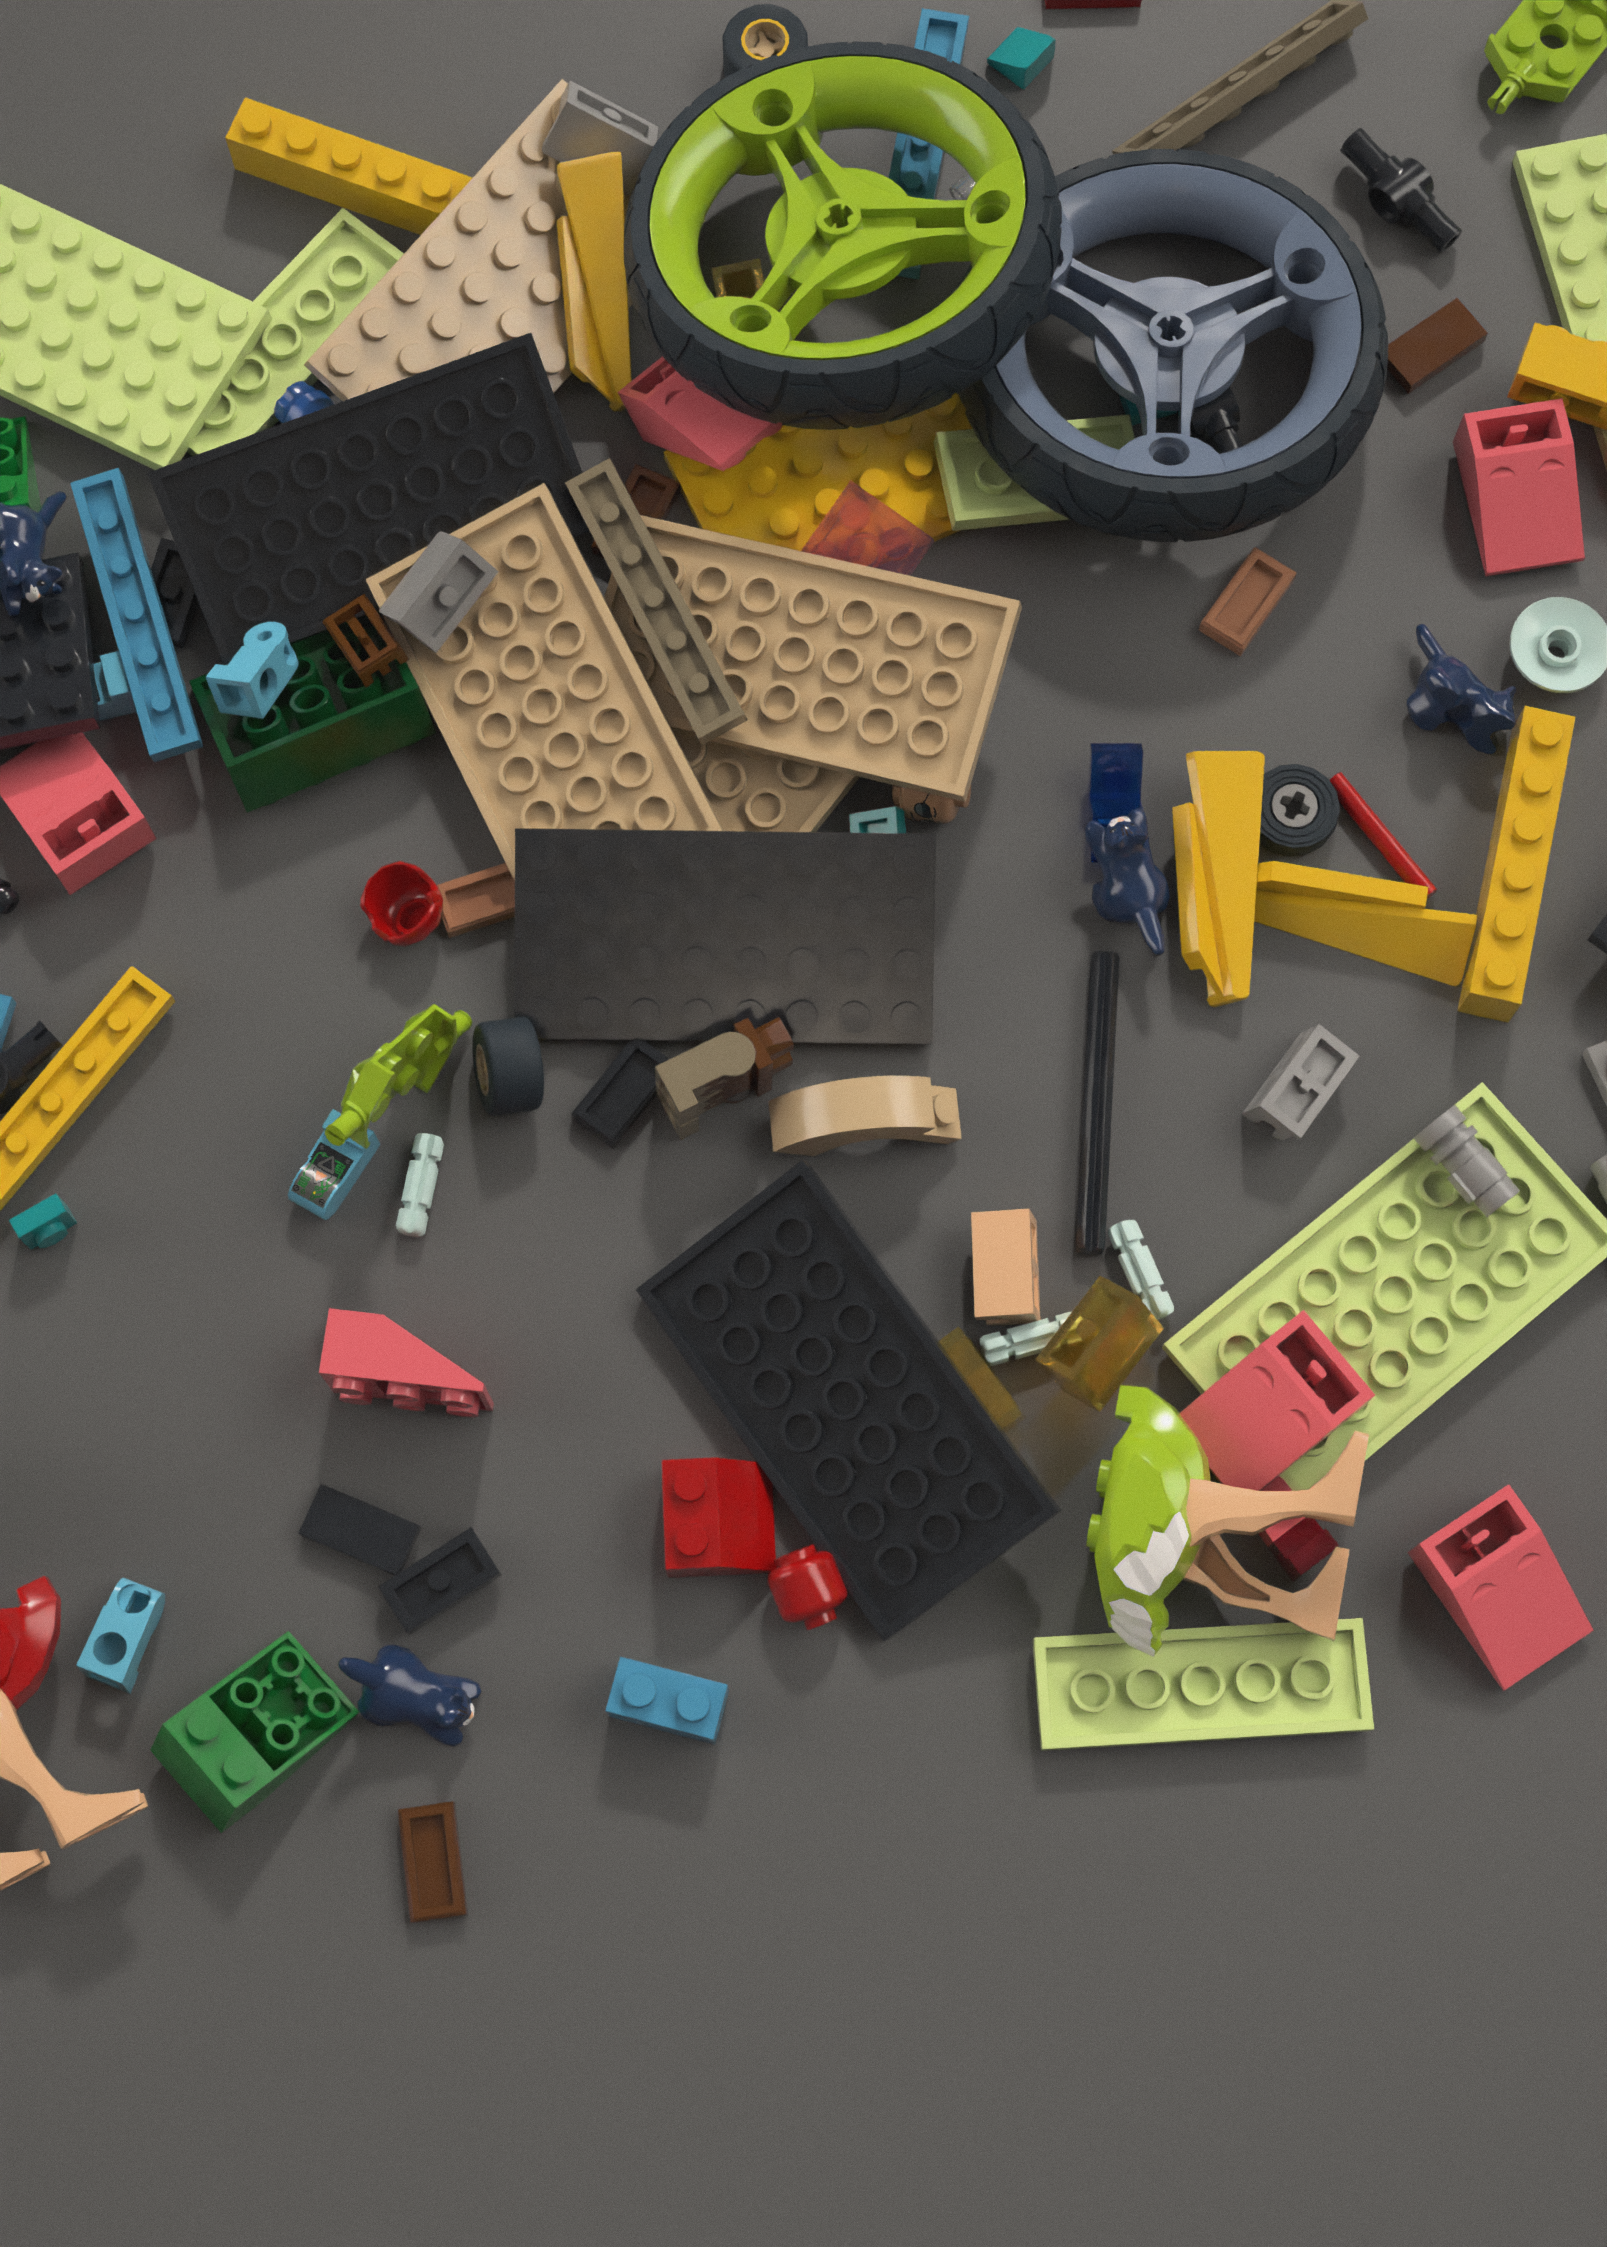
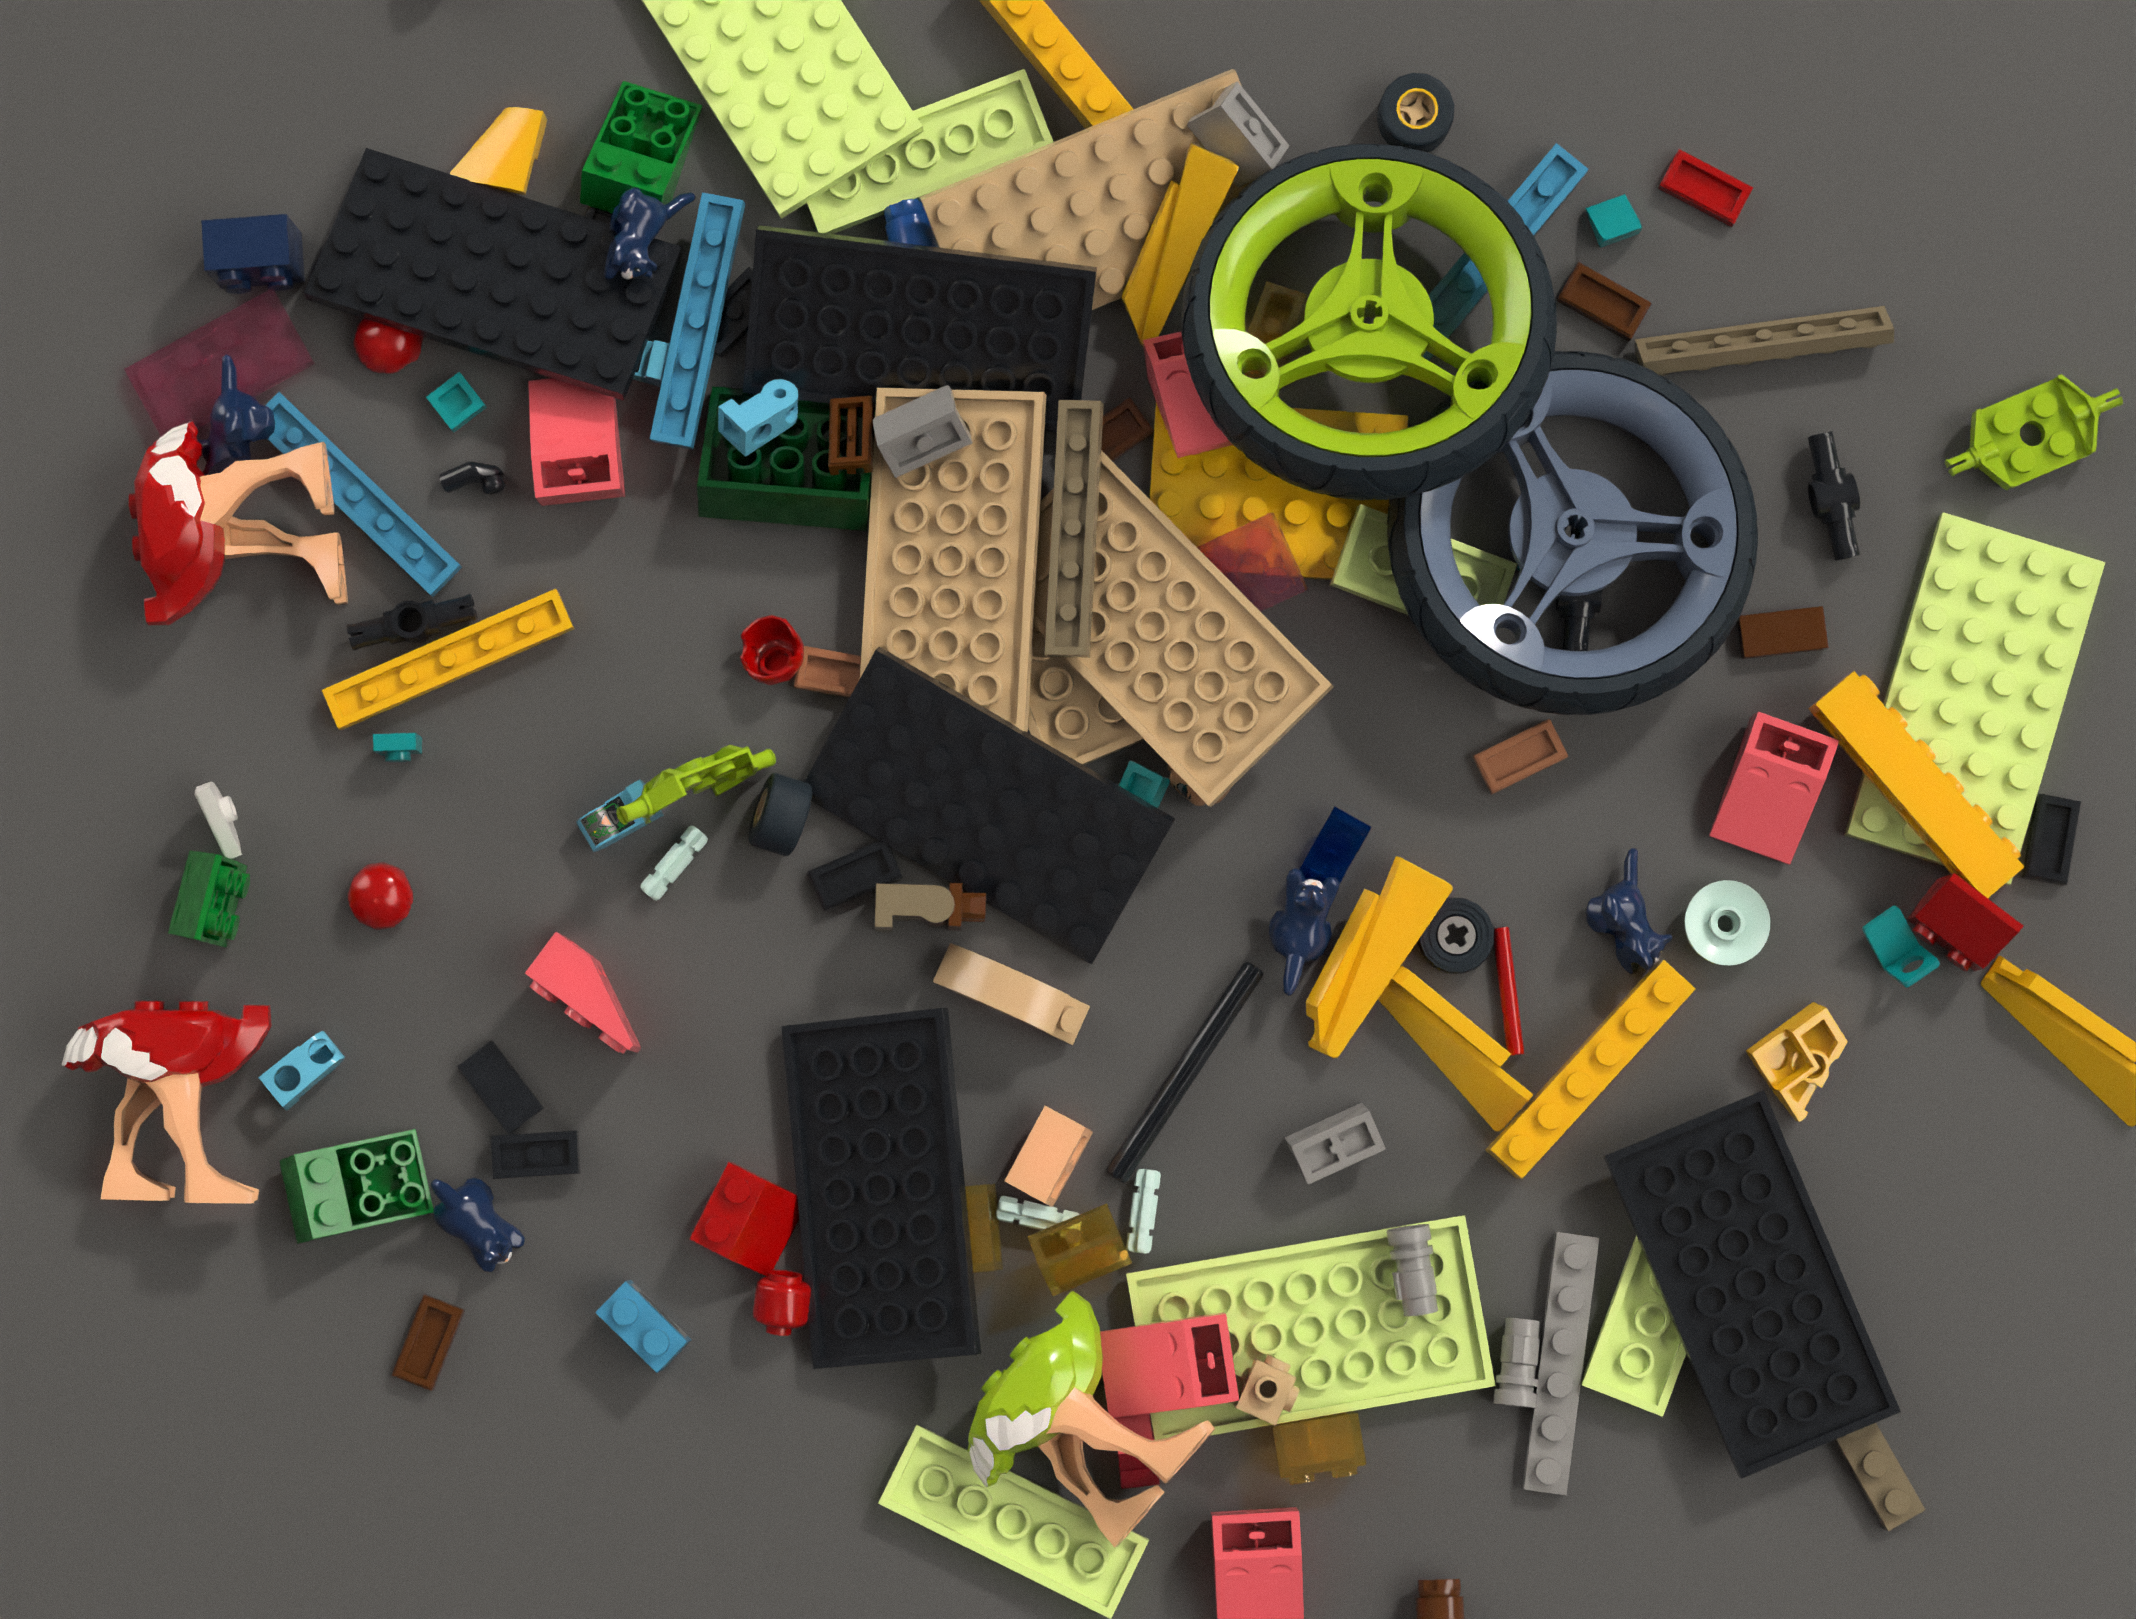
camera: 30 degrees right, 10 degrees up
(111, 1397) = (380, 896): none -> red hair
(1070, 131) = (1604, 301): none -> reddish brown tile
(1395, 1375) = (1268, 1390): none -> tan brick
(1479, 1411) = (1319, 1446): none -> clear yellow brick

